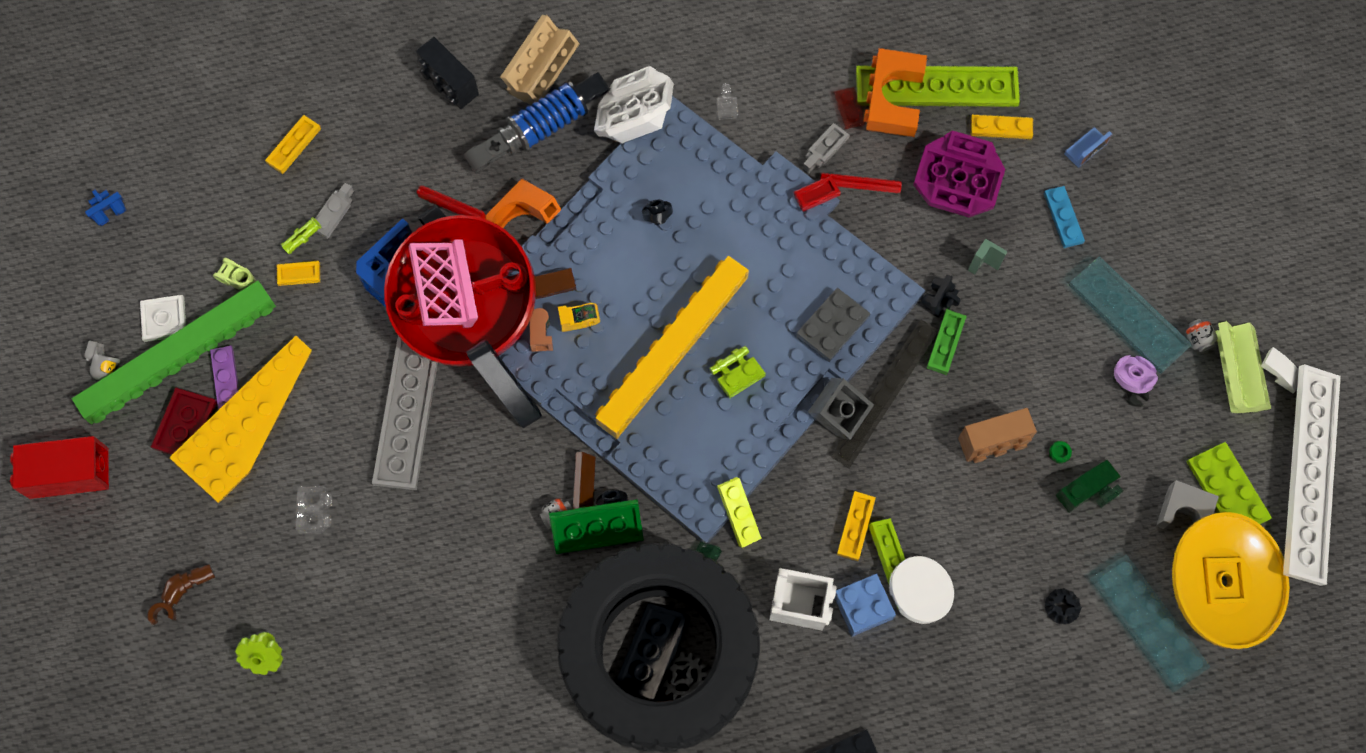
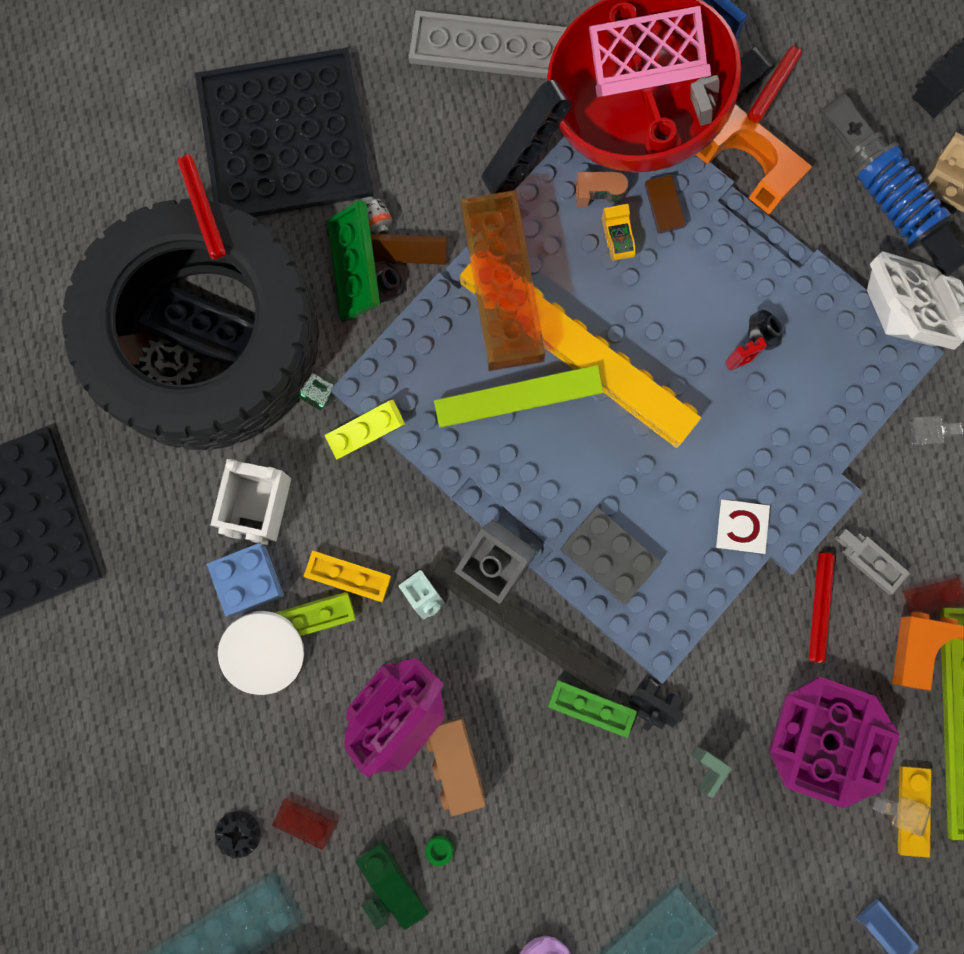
camera: 95 degrees right, 10 degrees up
(479, 593) = (284, 133): none -> black plate
(481, 248) = (702, 97): none -> light grey bracket
(568, 628) = (201, 207): none -> red axle
(626, 395) = (502, 280): none -> clear orange brick
(680, 227) = (746, 354): none -> red tile
(713, 389) = (518, 396): none -> lime tile
(740, 377) = (540, 437): lime plate -> none
(806, 232) = (743, 526): none -> white sticker
(817, 193) = (799, 542): red tile -> none
(867, 468) = (422, 595): none -> light aqua bracket
(964, 481) = (393, 717): none -> magenta piece
(1005, 129) = (907, 814): none -> clear plate
(1049, 554) = (303, 823): none -> clear red plate
(1064, 217) = (777, 889): dark azure plate -> none

